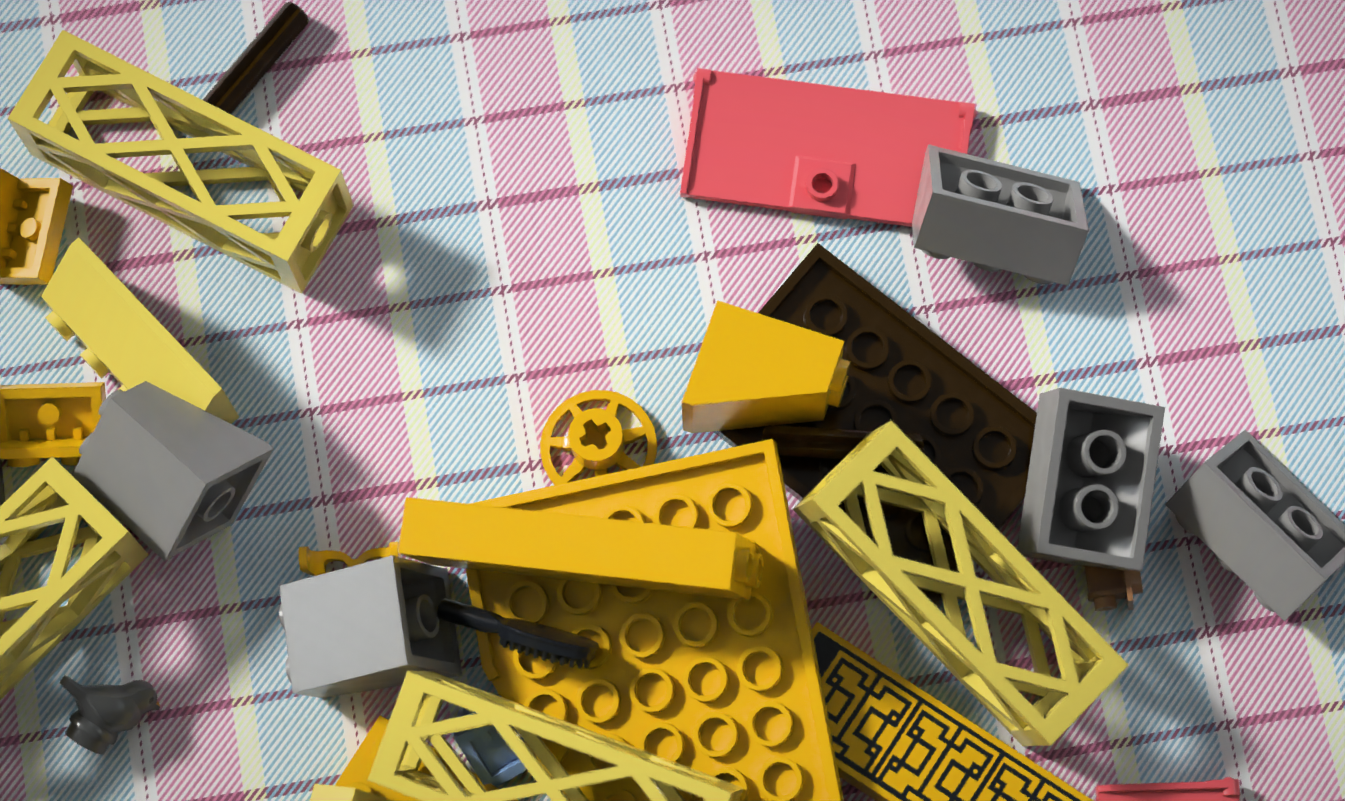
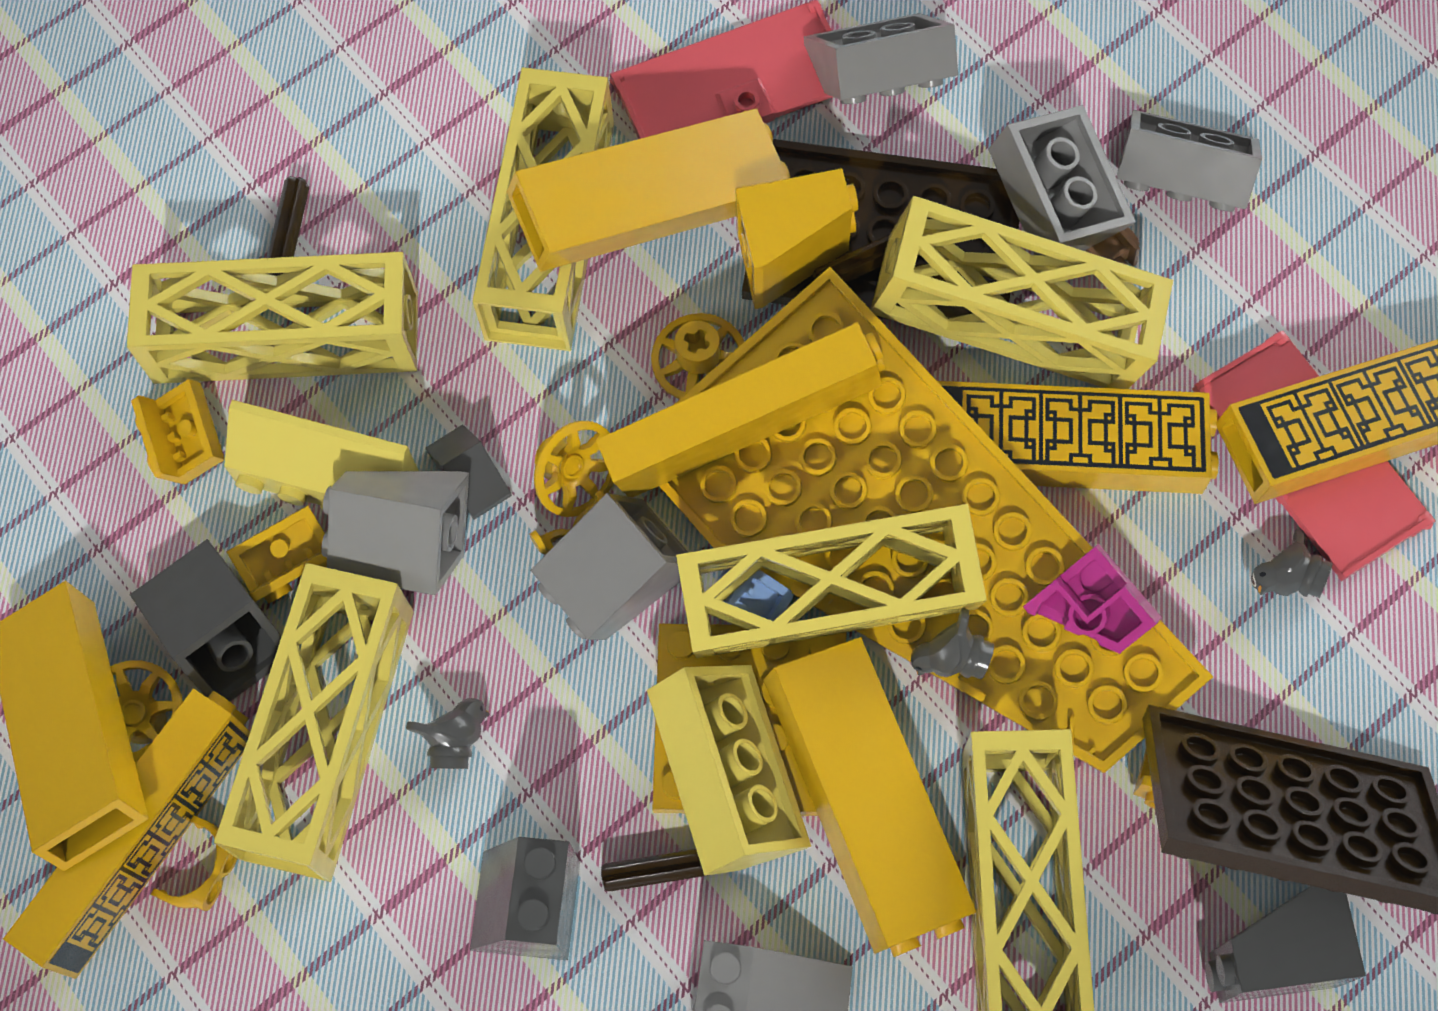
camera: 30 degrees left, 5 degrees down
(288, 424) = (465, 453): none -> dark grey slope
(382, 487) = (568, 466): none -> yellow wheel
(523, 635) = (729, 505): black piece -> none
(533, 249) = (583, 115): none -> light yellow piece
(635, 242) = (642, 188): none -> yellow brick

